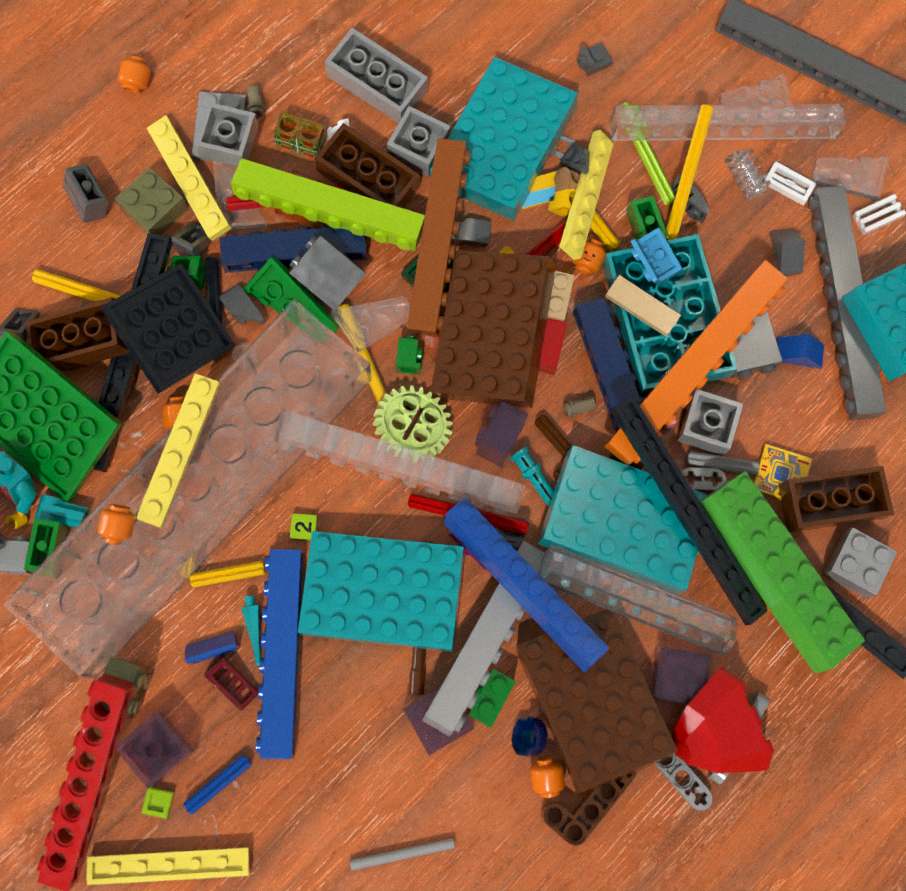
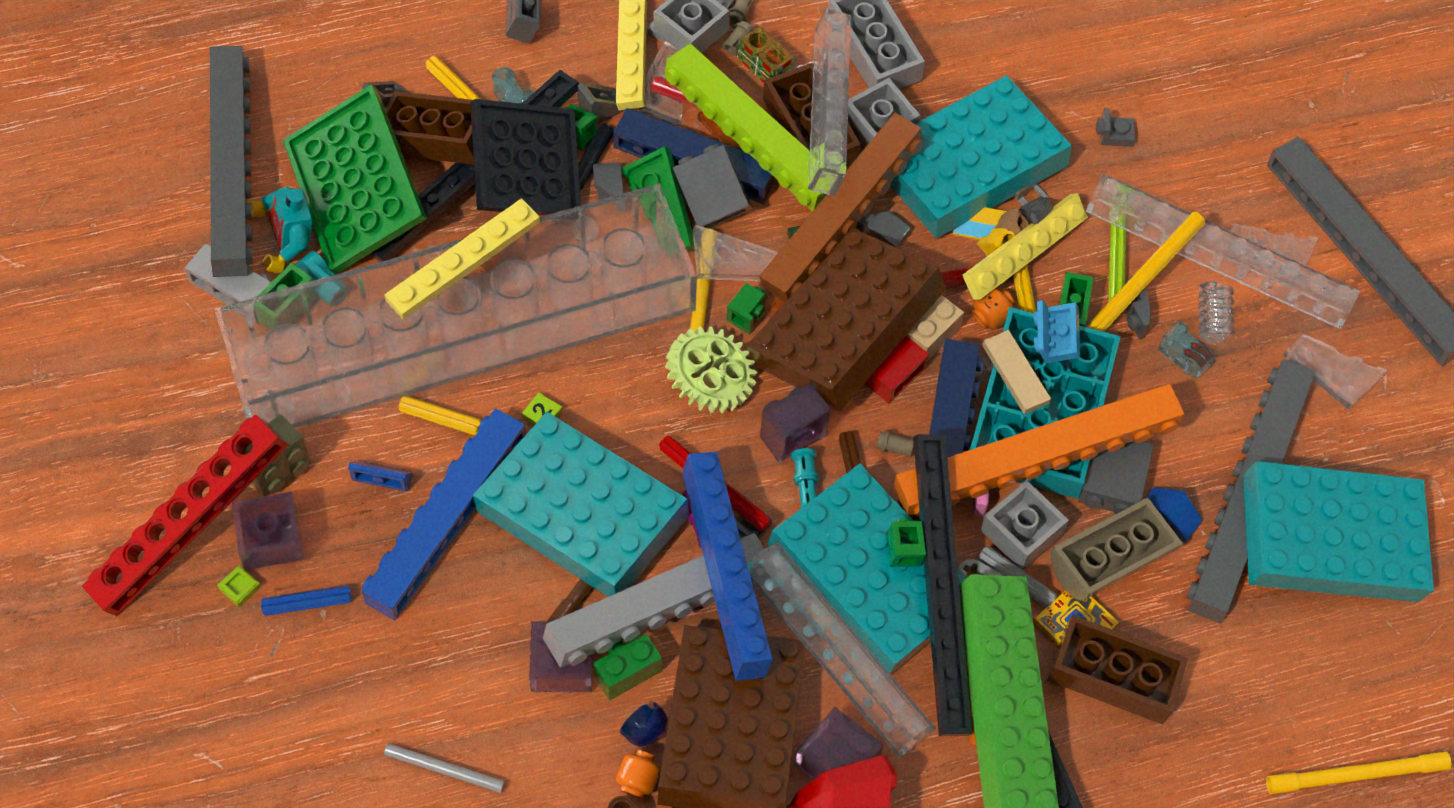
camera: 35 degrees right, 15 degrees down
(115, 269) = (506, 87): none -> clear light blue leg
(116, 524) = (363, 289): orange head -> none
(151, 203) = (581, 48): olive brick -> none
(168, 865) = (212, 647): light yellow plate -> none
(217, 682) = (374, 493): dark red slope -> none
(252, 619) = (437, 469): teal piece -> none
(267, 128) = (740, 30): none -> dark tan pin
(380, 154) = (830, 103): none -> clear brick
(399, 462) = (671, 386): clear brick -> none
(653, 490) = (912, 534): none -> green brick
(743, 216) = (1186, 351): none -> clear light blue leg
(785, 409) = (1113, 550): none -> dark tan brick
(787, 186) = (1254, 347): white tile -> none
(788, 251) = (1215, 411): dark grey slope -> none
(859, 563) = (1107, 749): light grey brick -> none
(894, 207) = (1343, 419): white tile -> none

